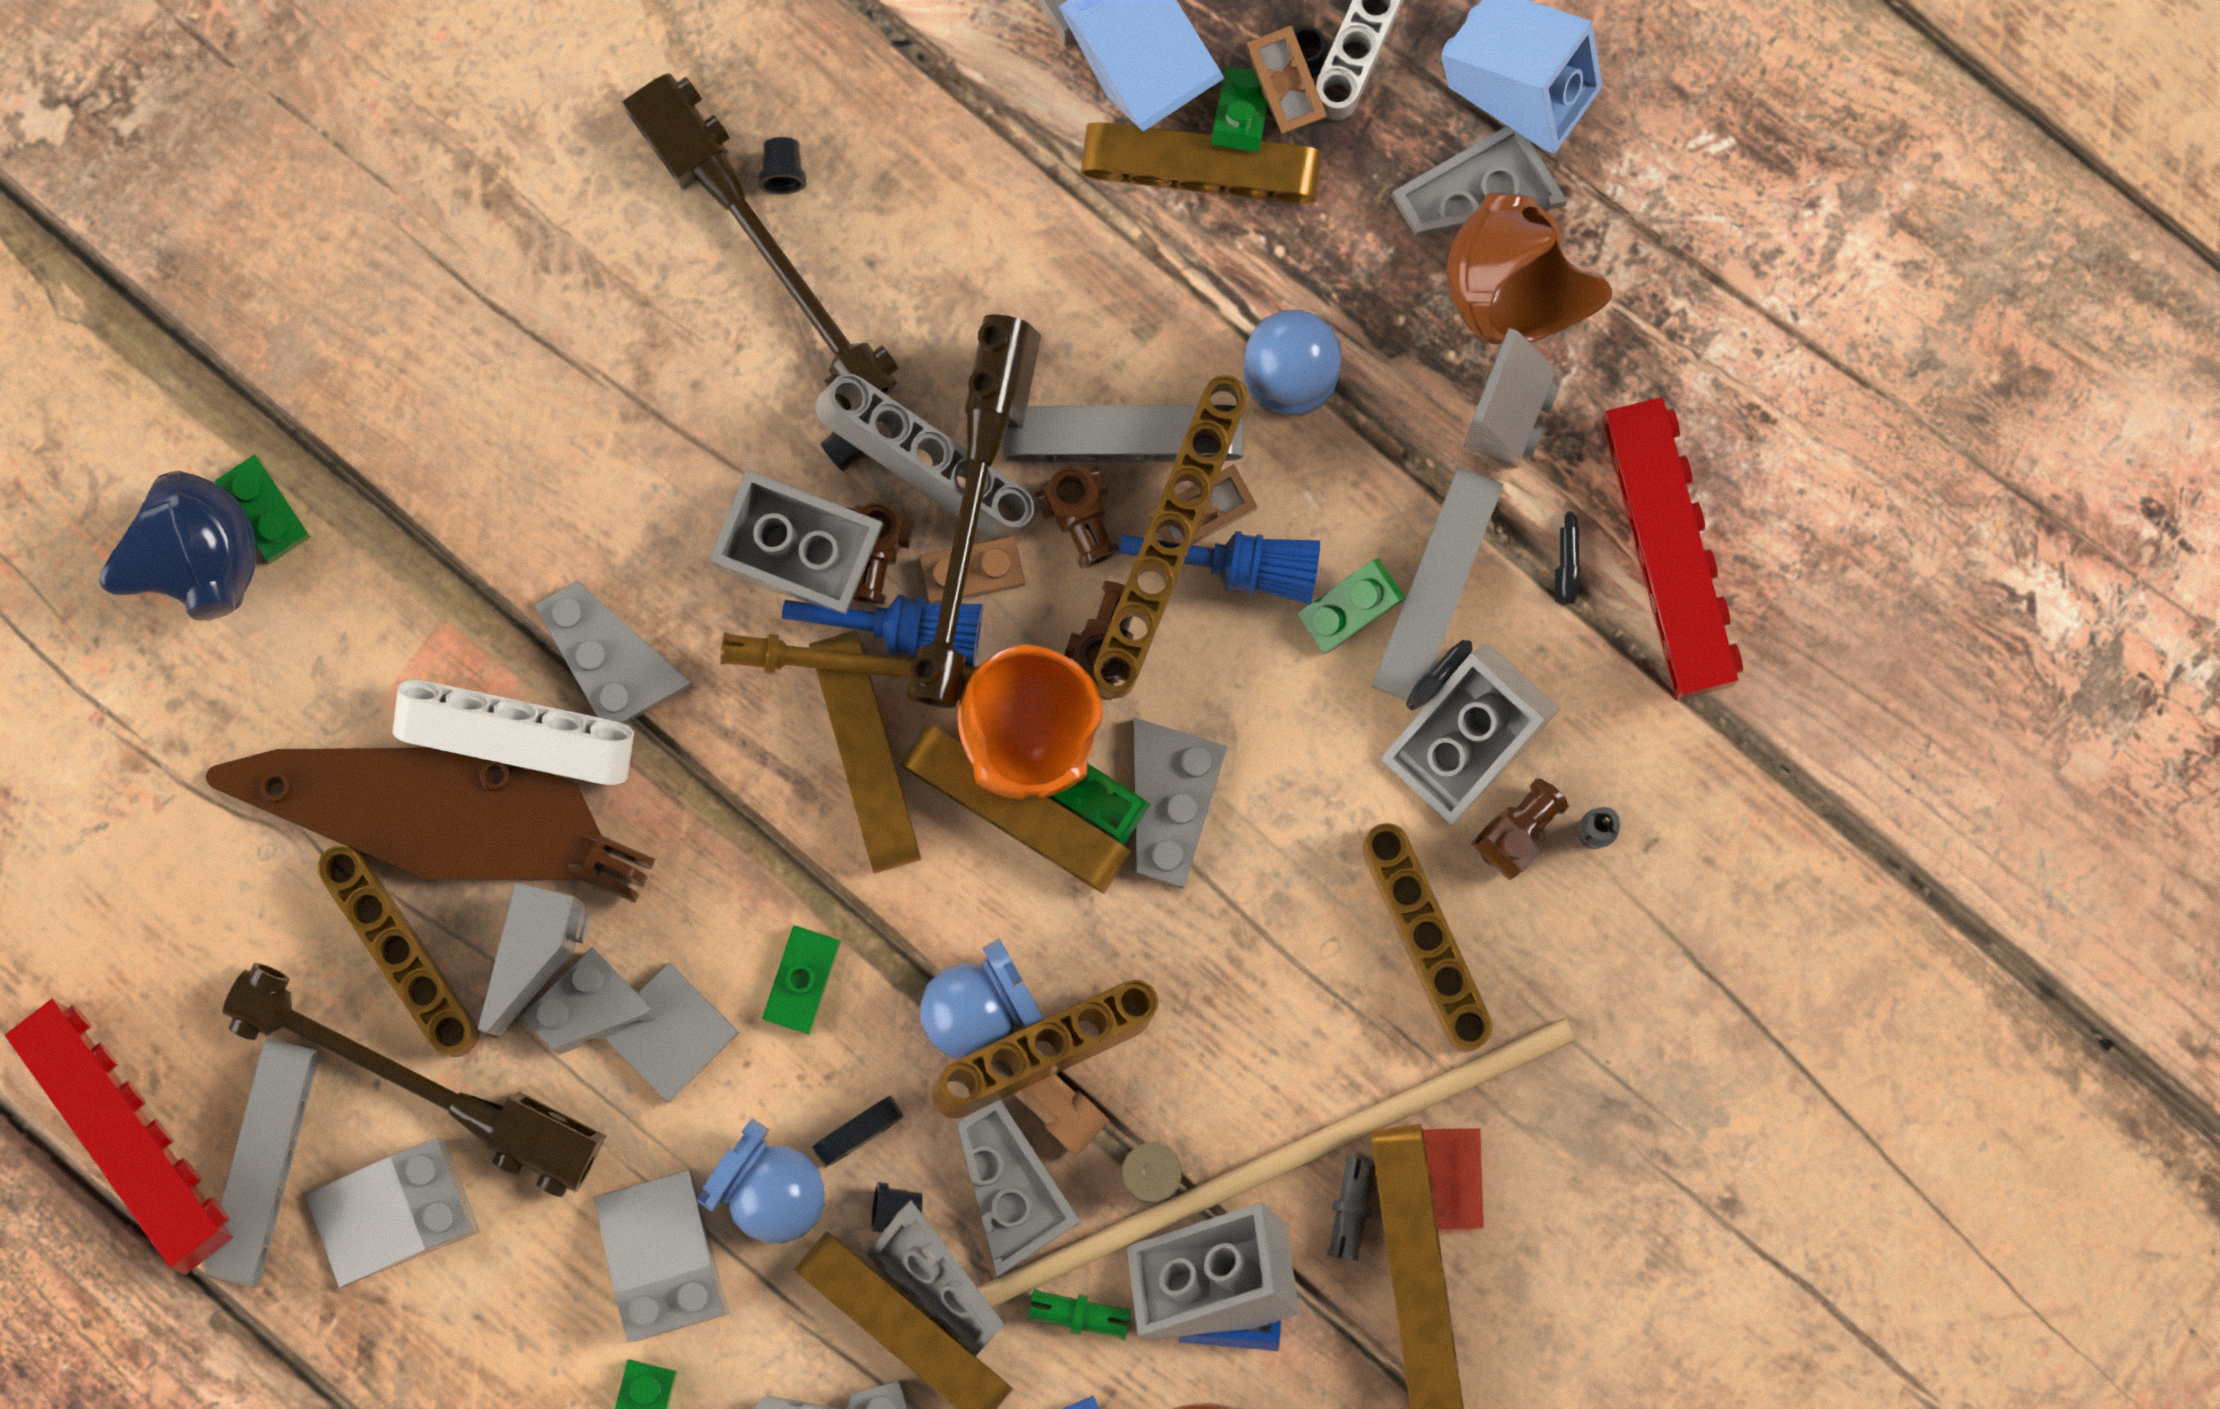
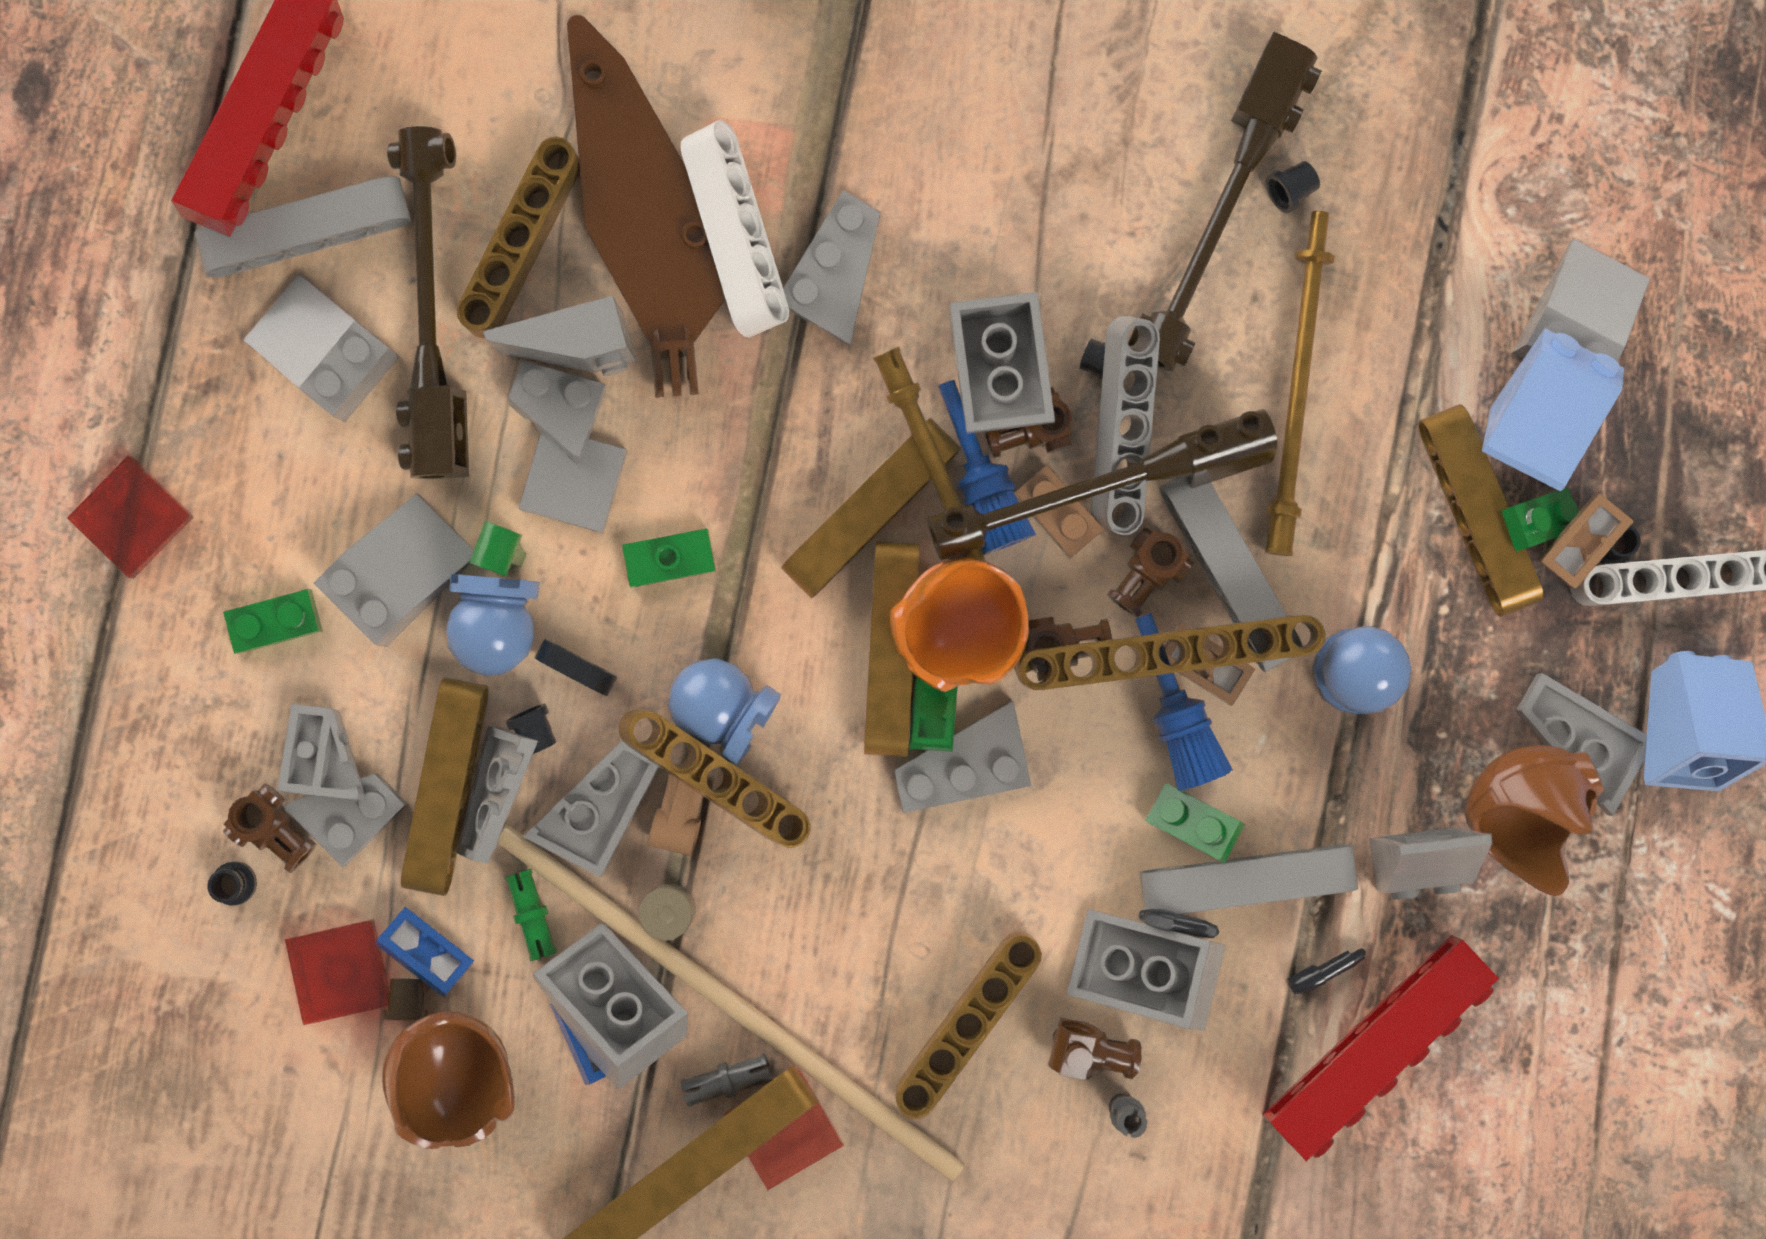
camera: 55 degrees right, 5 degrees up
(697, 1138) = (498, 549): none -> green piece
(1092, 349) = (1284, 508): none -> pearl gold bar

